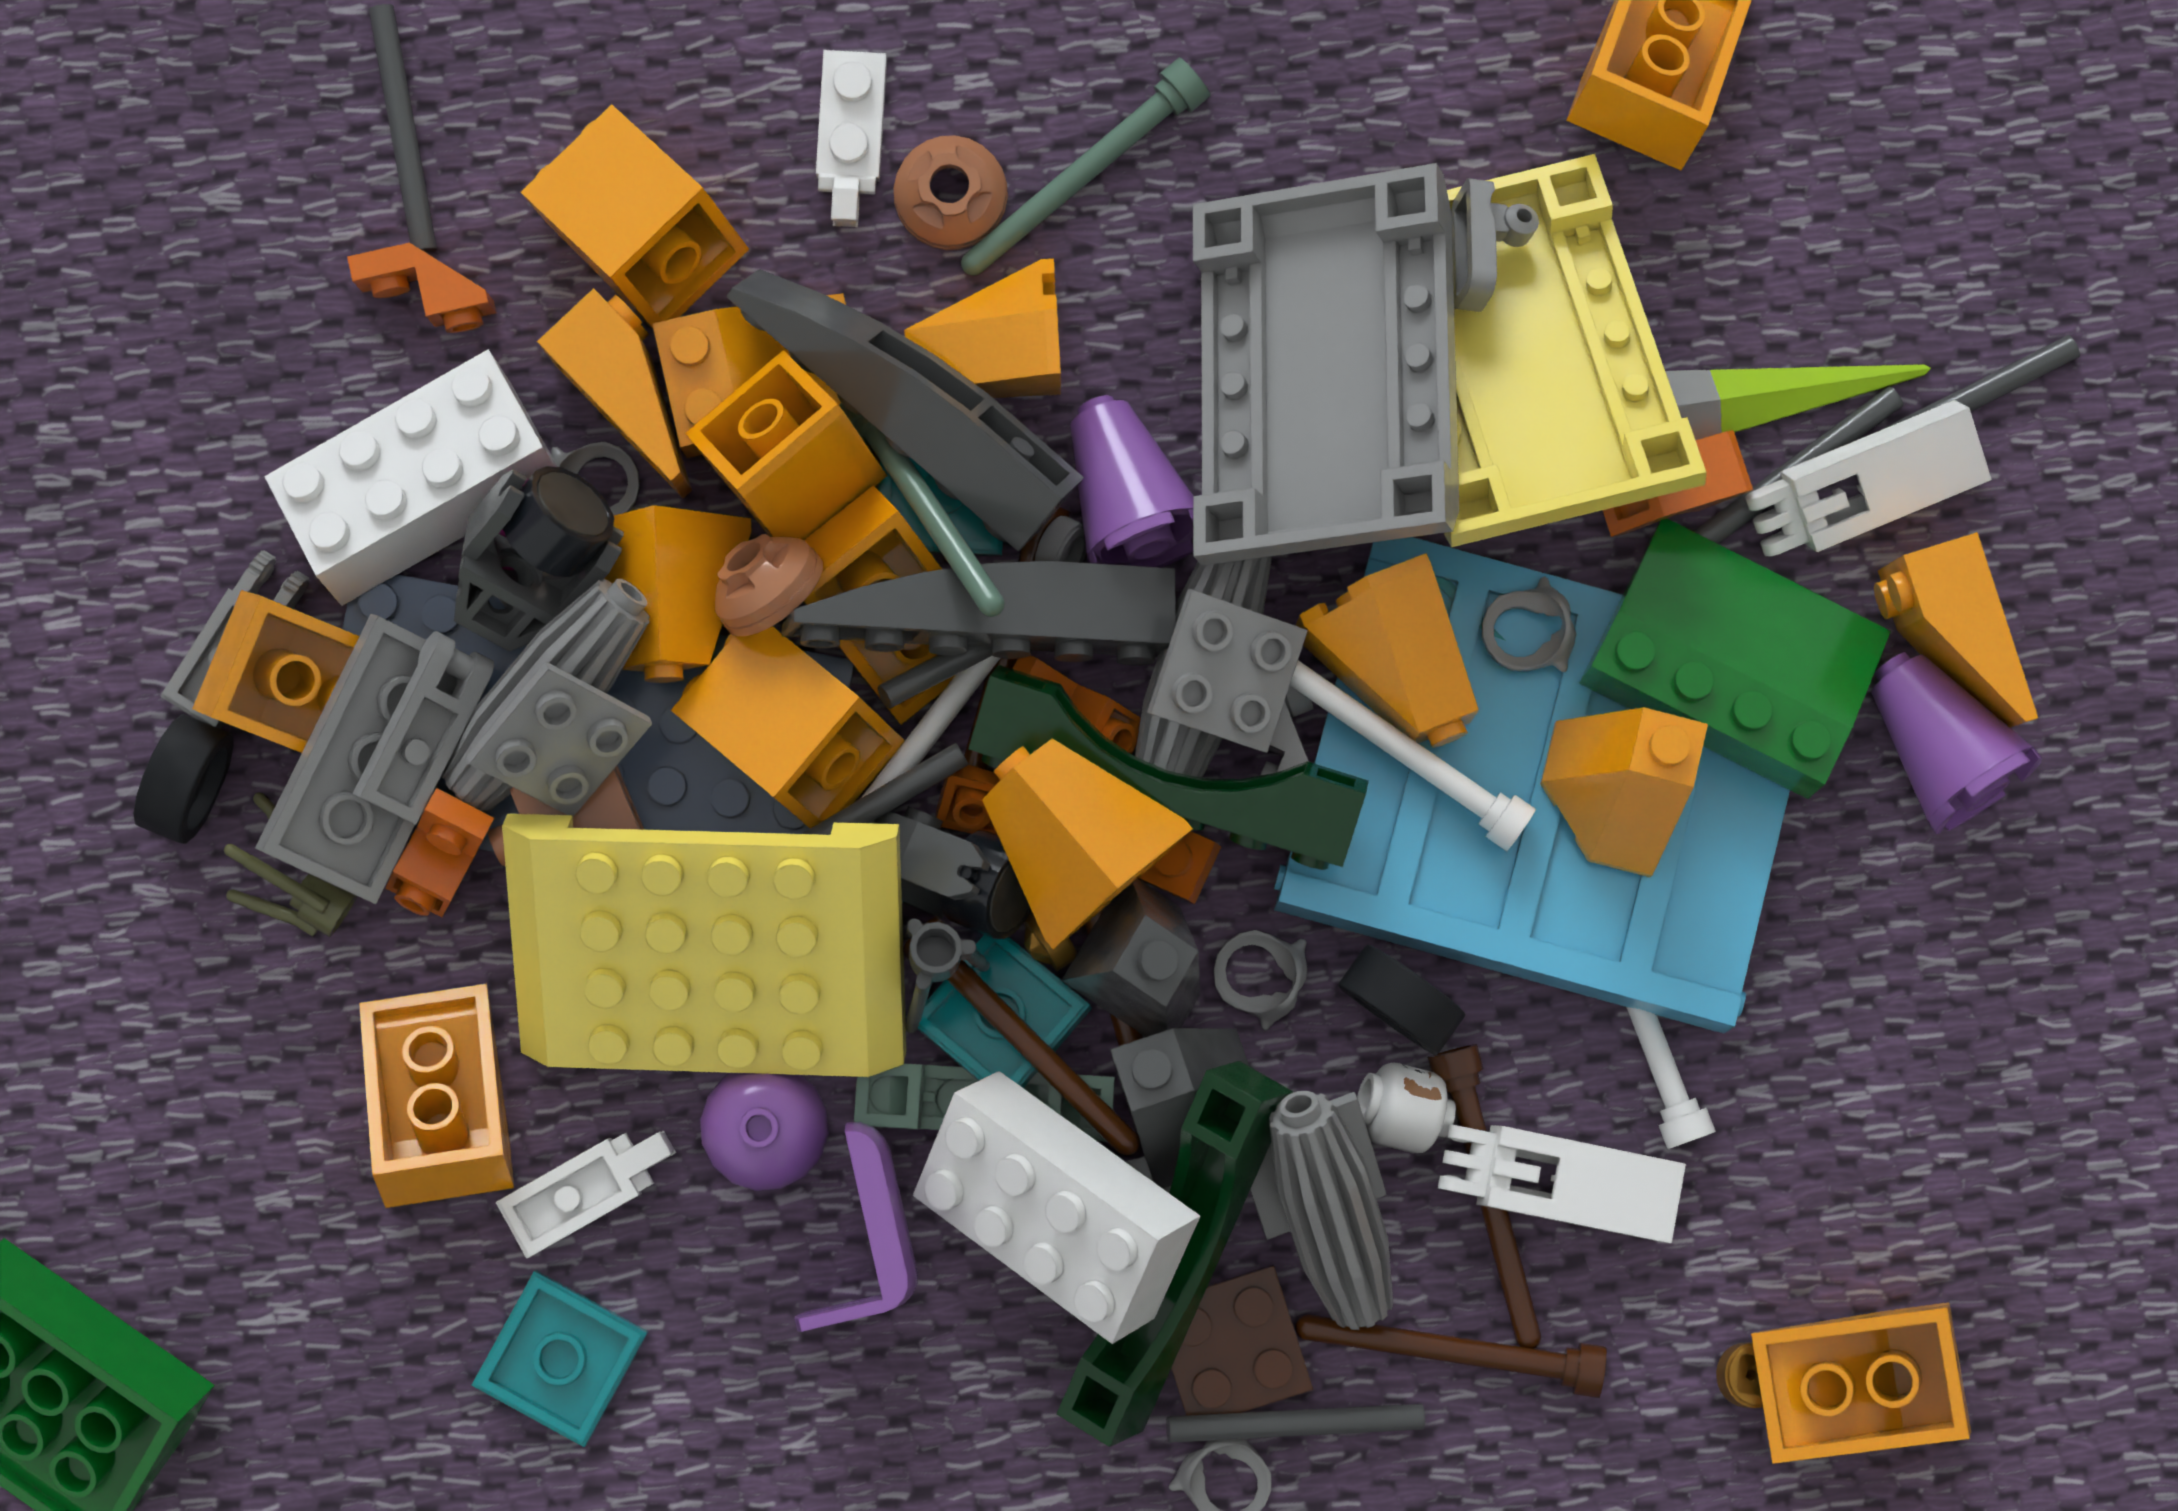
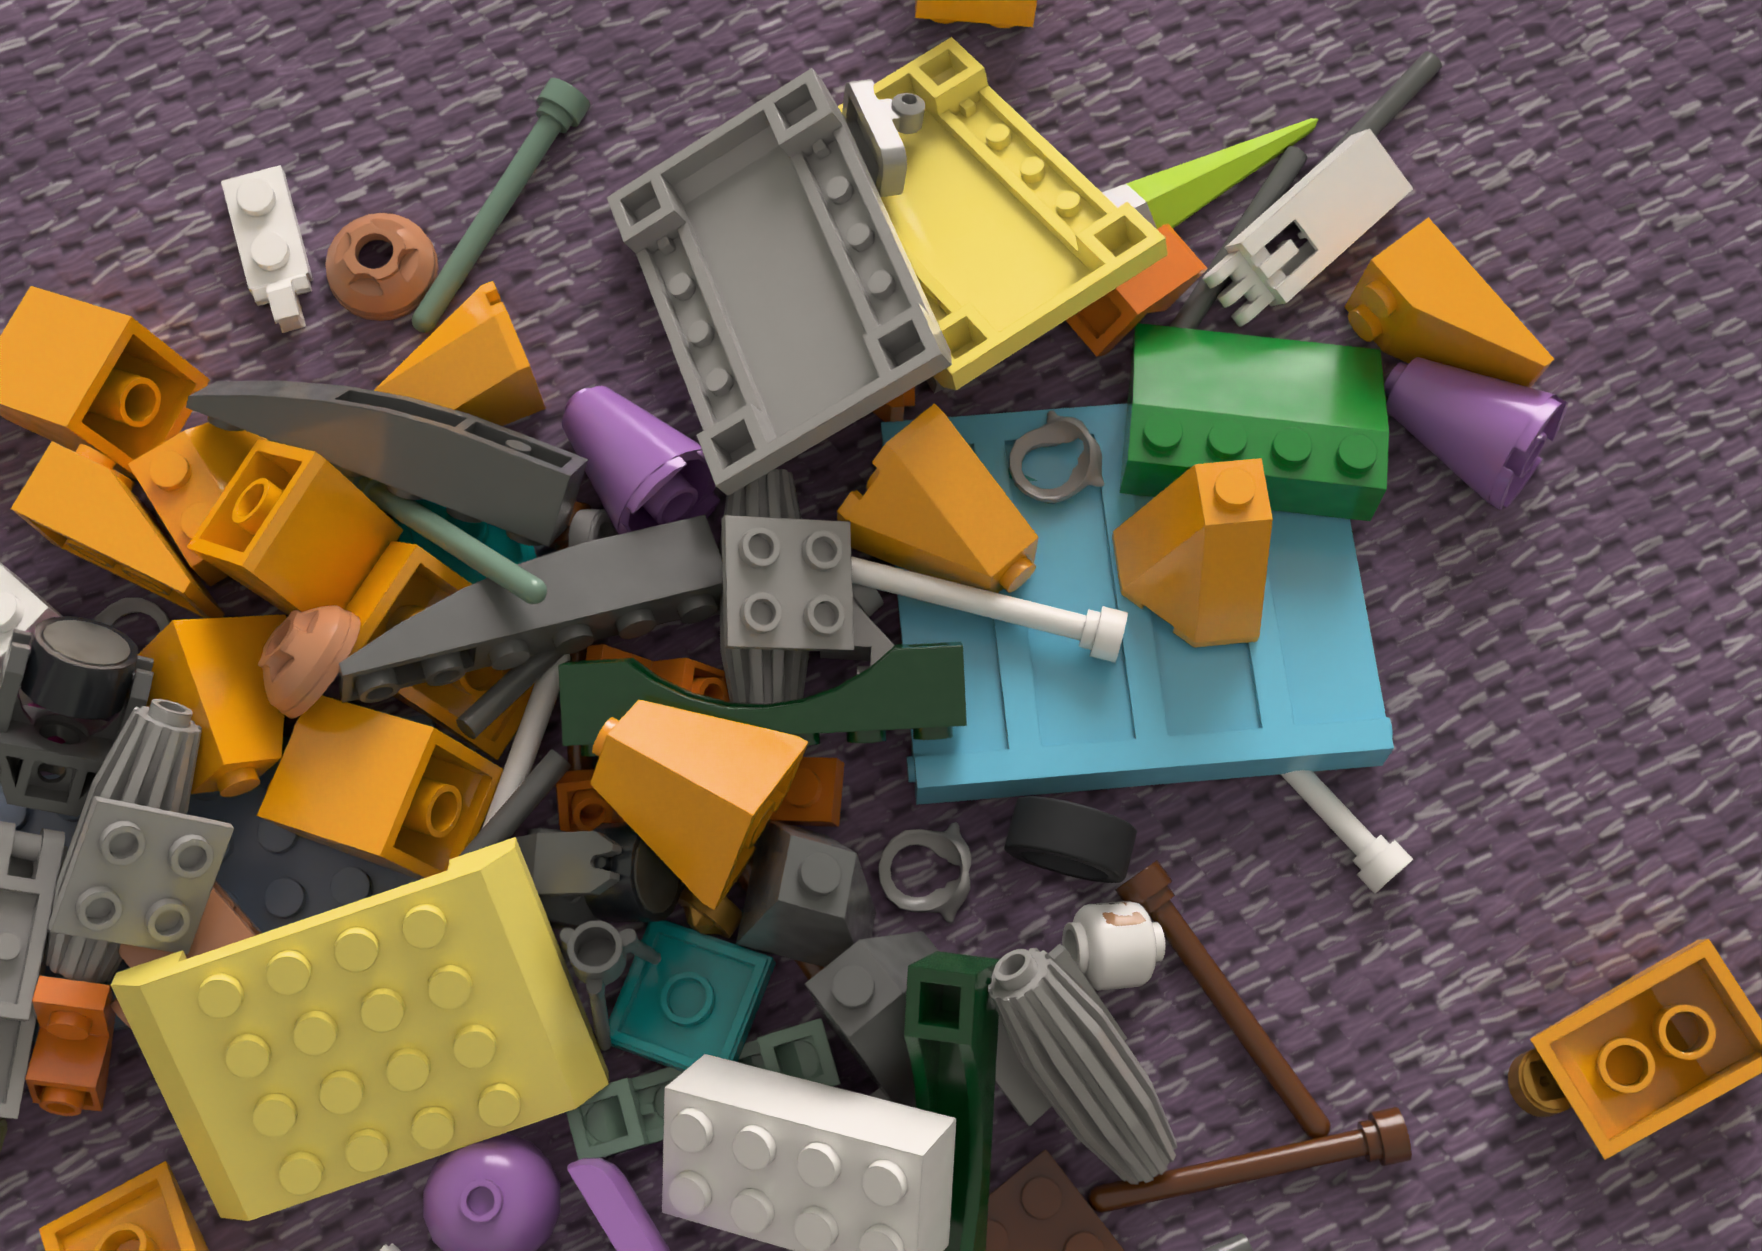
camera: 20 degrees left, 10 degrees down
(1041, 1056) = (743, 1025): reddish brown piece -> none
(1590, 1187) = (1322, 953): white hinge -> none

